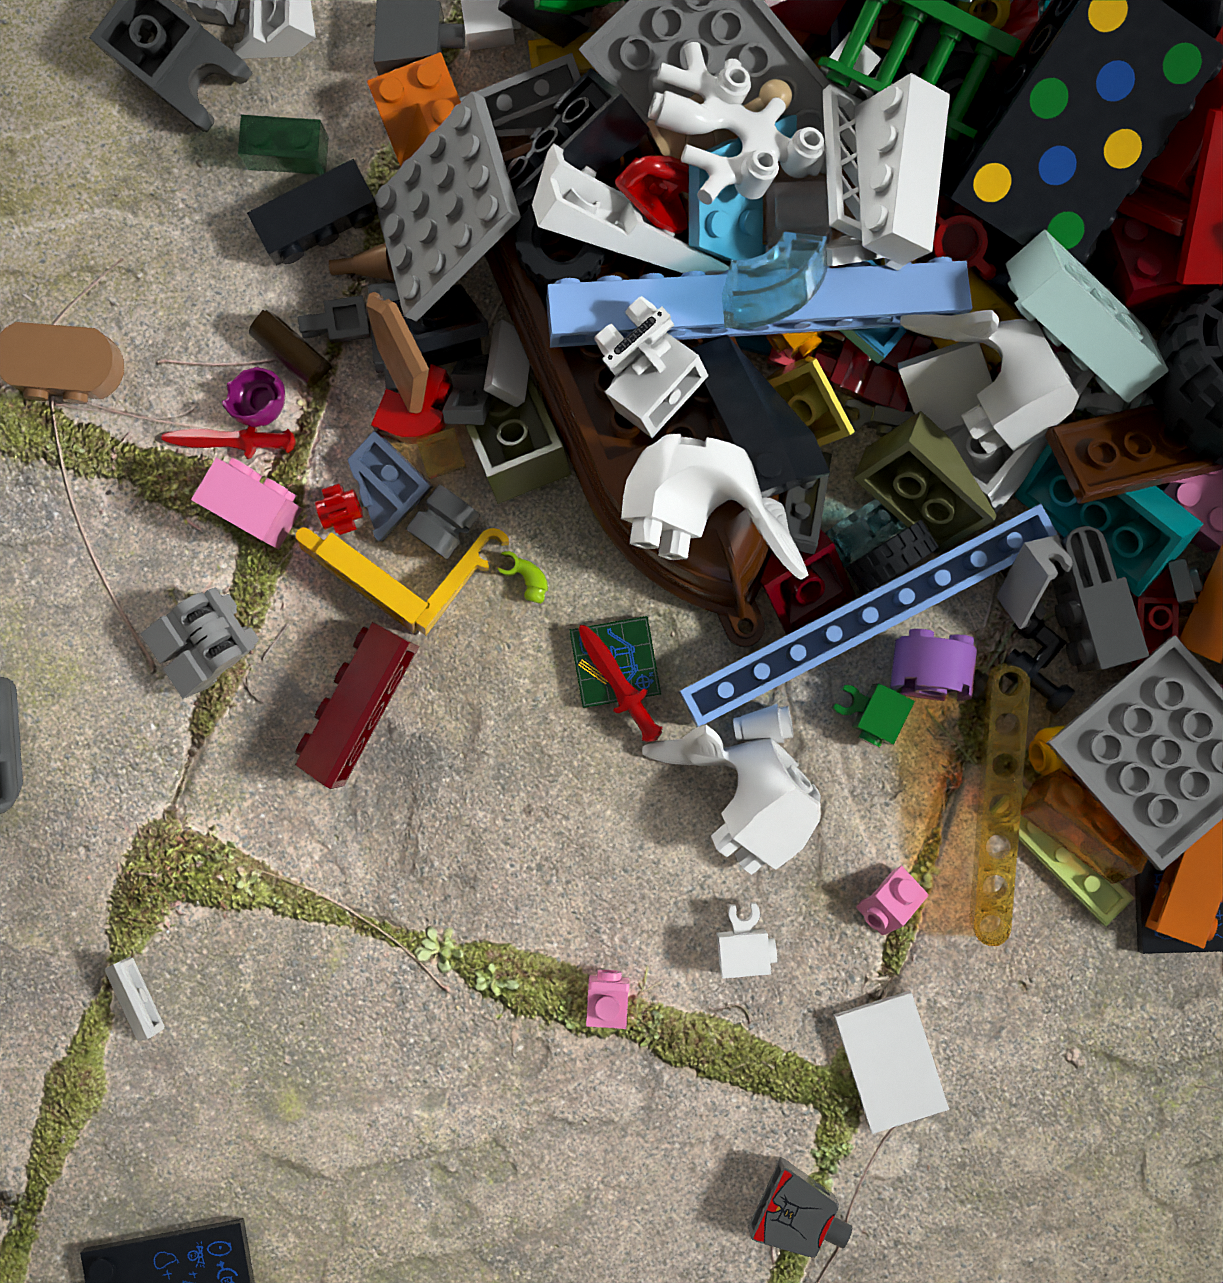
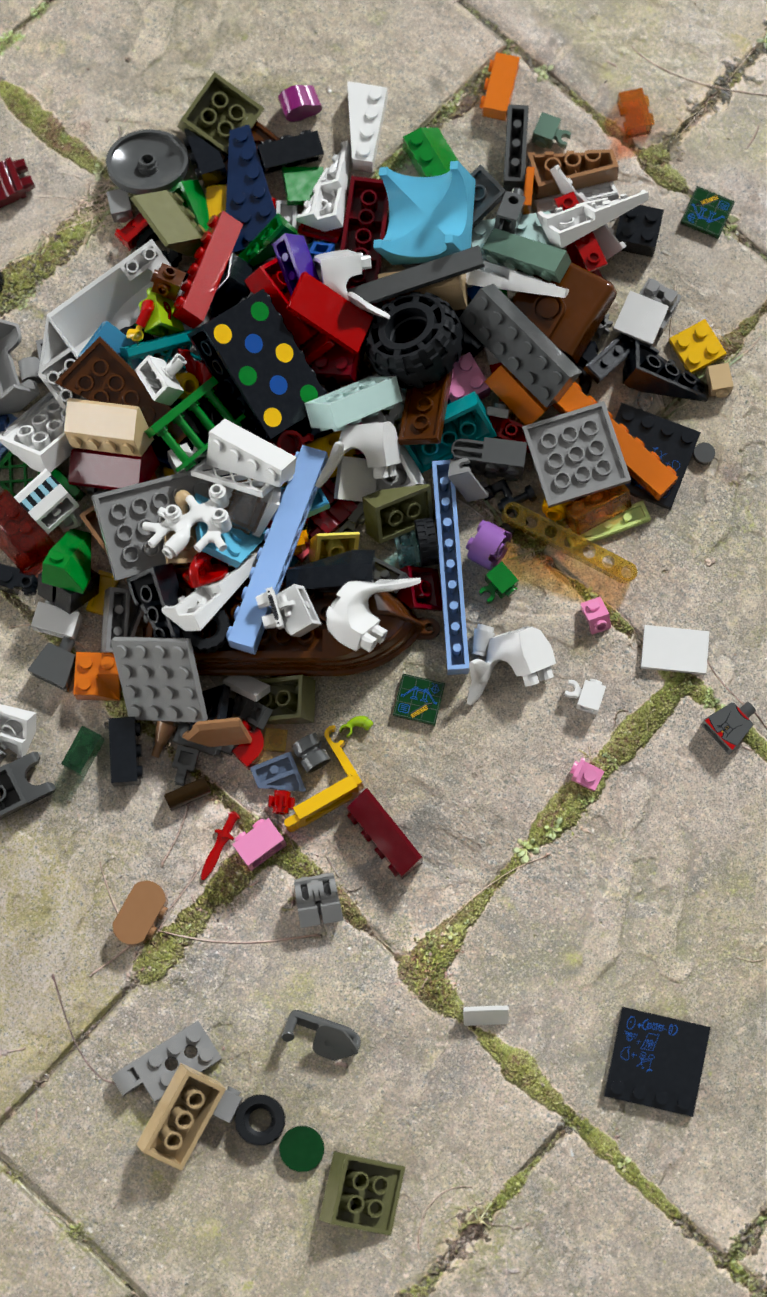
camera: 65 degrees left, 10 degrees down
(255, 397) = (205, 820): magenta hair -> none
(628, 697) = (437, 699): red sword -> none
(774, 283) = (276, 534): clear light blue brick -> none

